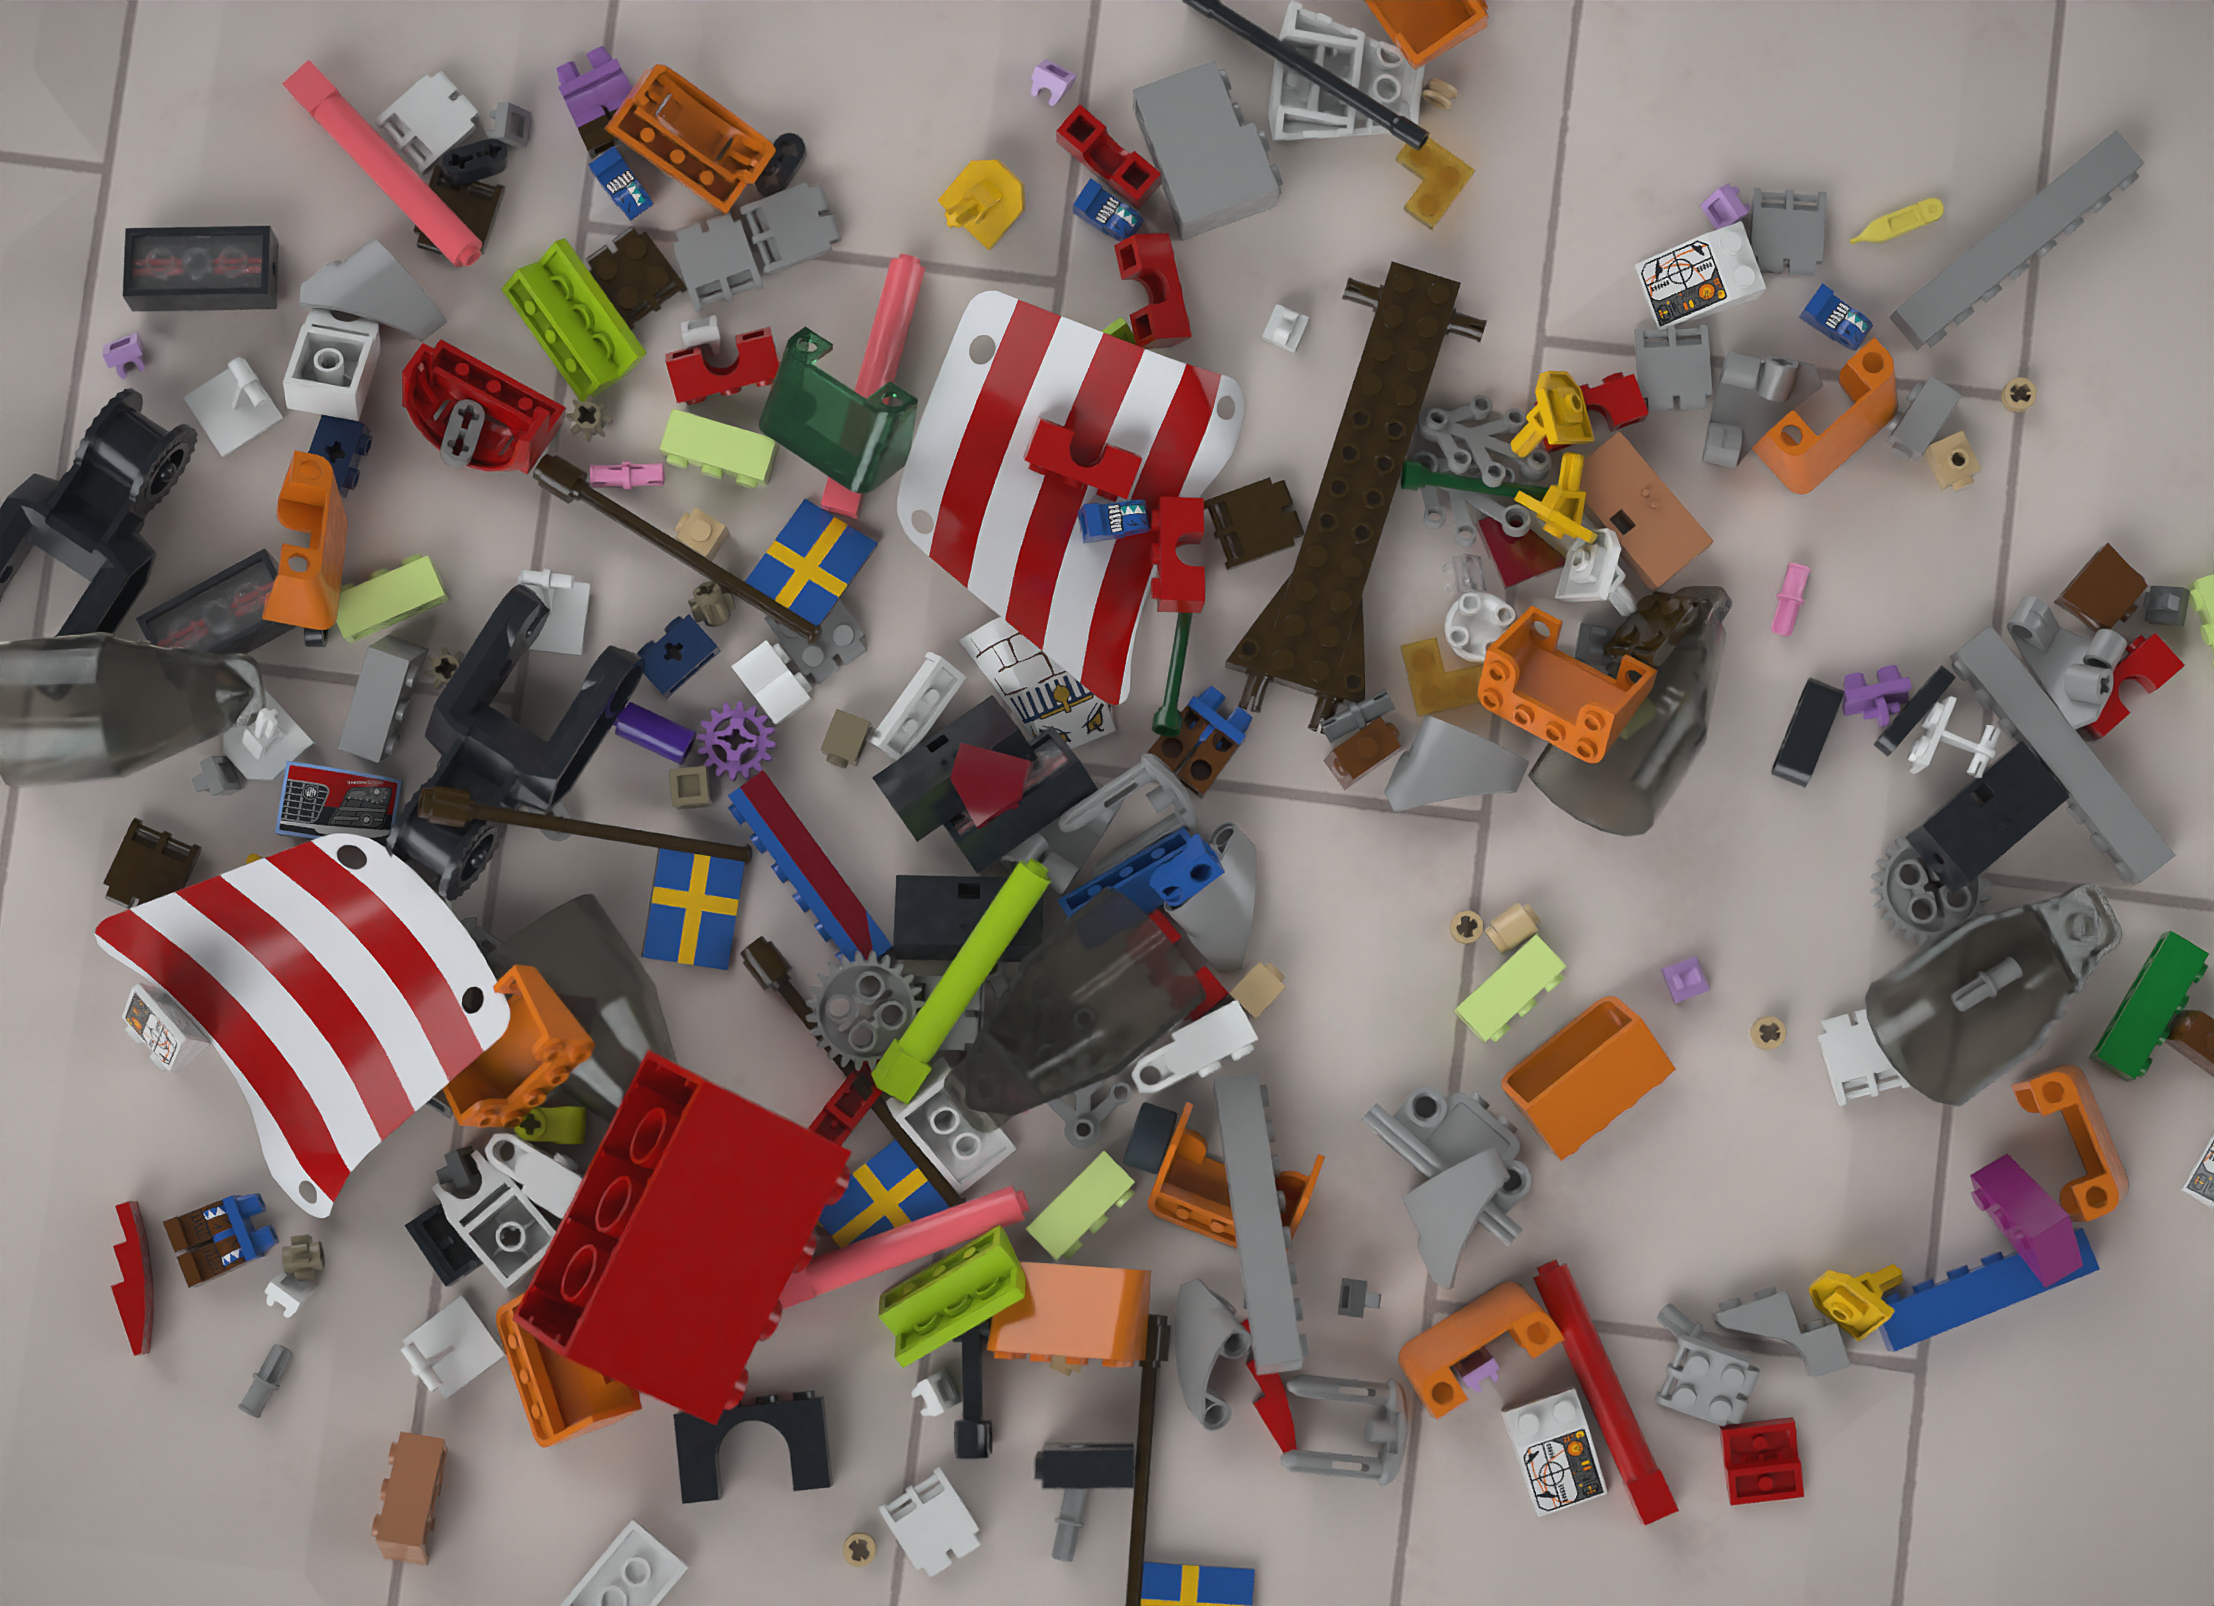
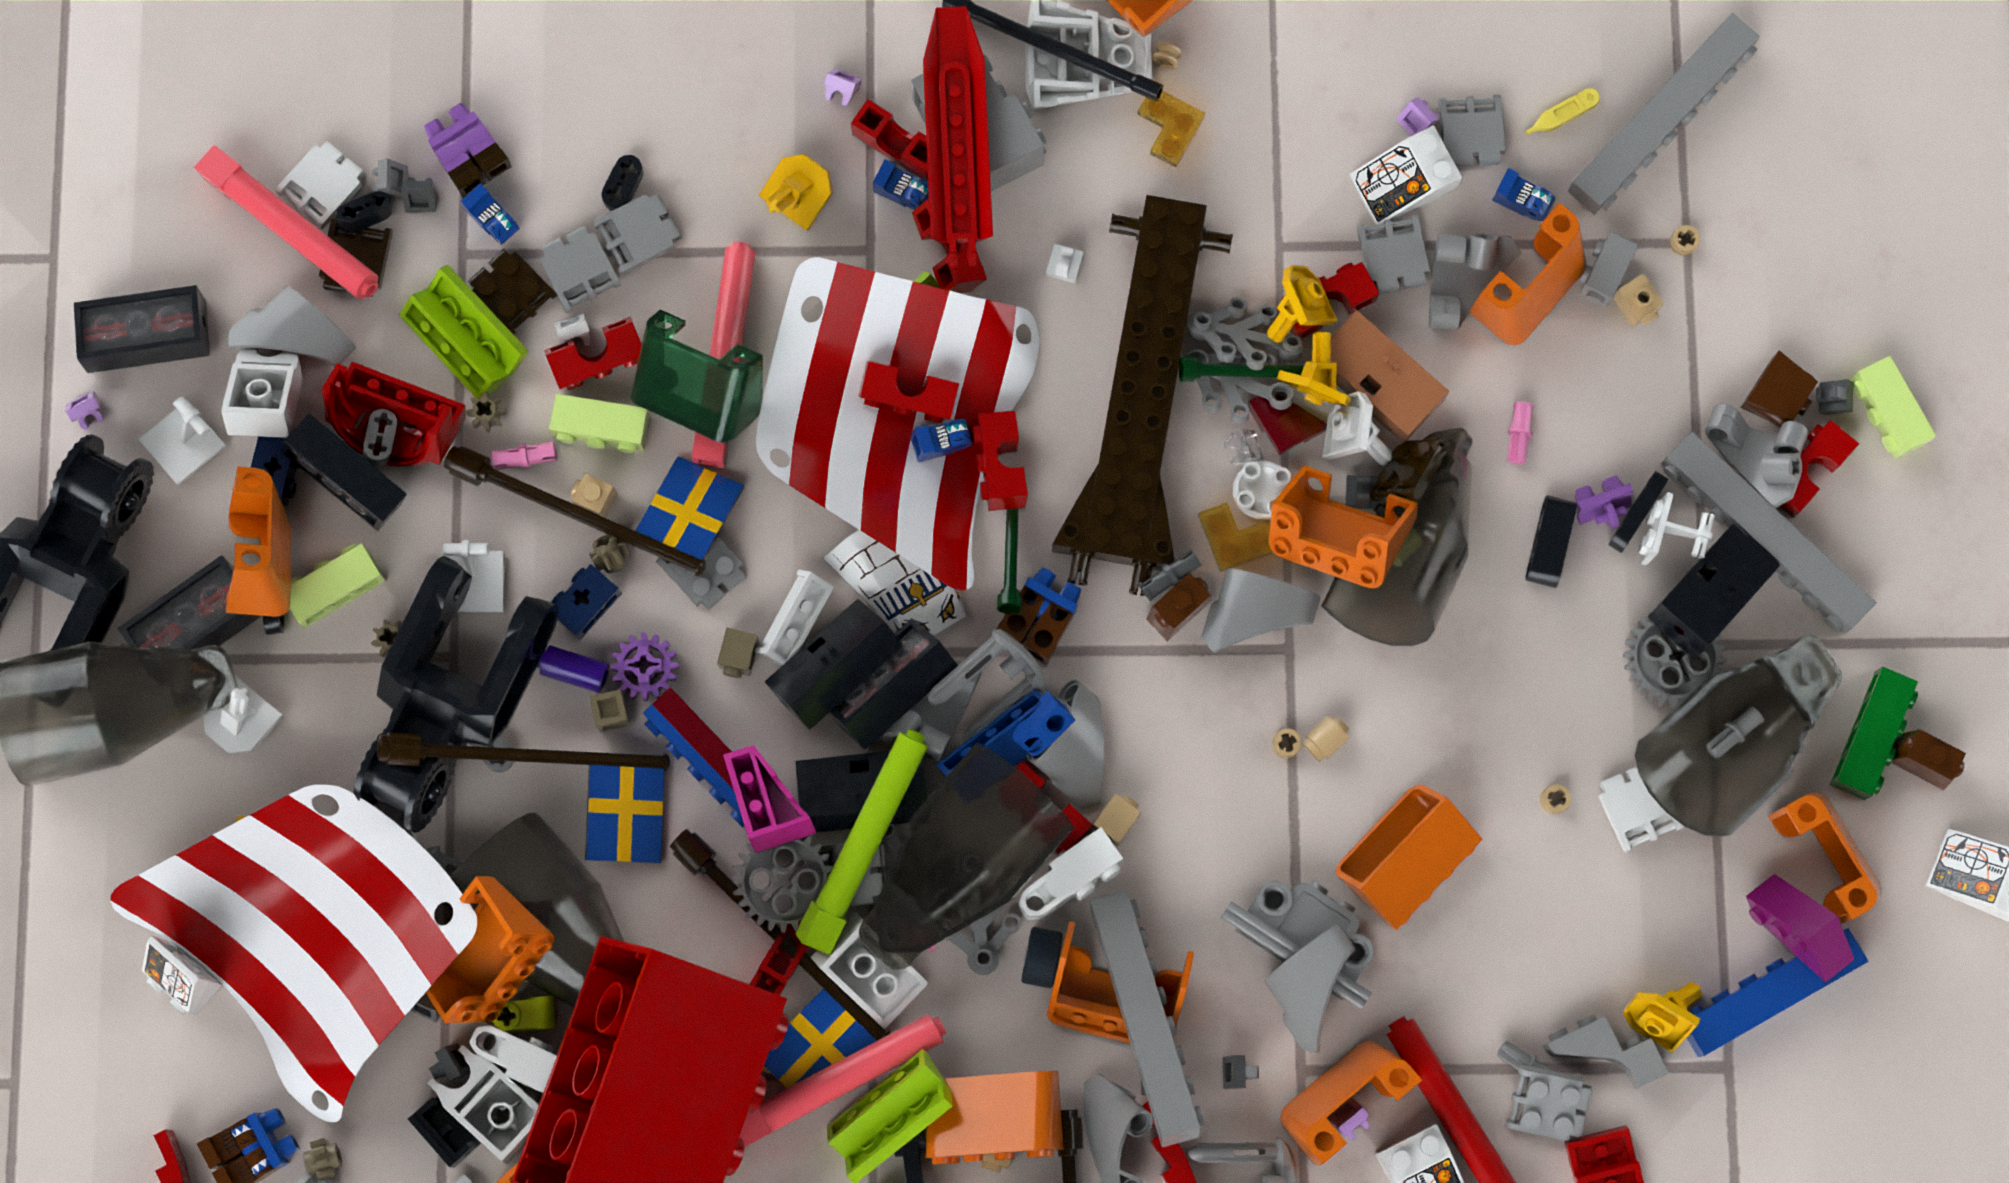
camera: 10 degrees left, 5 degrees down
(148, 868) = (149, 839): dark brown plate -> none
(217, 777) = (202, 755): light grey tile -> none
(334, 801) = (306, 759): slope -> none
(382, 698) = (336, 669): light grey wedge -> none
(415, 470) = (343, 472): none -> black brick
(540, 150) = (419, 195): none -> dark grey tile
(690, 136) = (543, 167): orange piece -> none
(772, 682) = (668, 613): white brick -> none
(854, 922) = (764, 802): none -> dark pink wedge
(989, 781) = (864, 668): dark red slope -> none
(1082, 1207) = (991, 1025): yellowish green brick -> none
(1178, 161) = (957, 133): none -> red hinge
(1254, 521) = (1060, 426): dark brown plate -> none
(1511, 990) = (1332, 791): yellowish green brick -> none
(1685, 979) = (1478, 763): lavender tile -> none

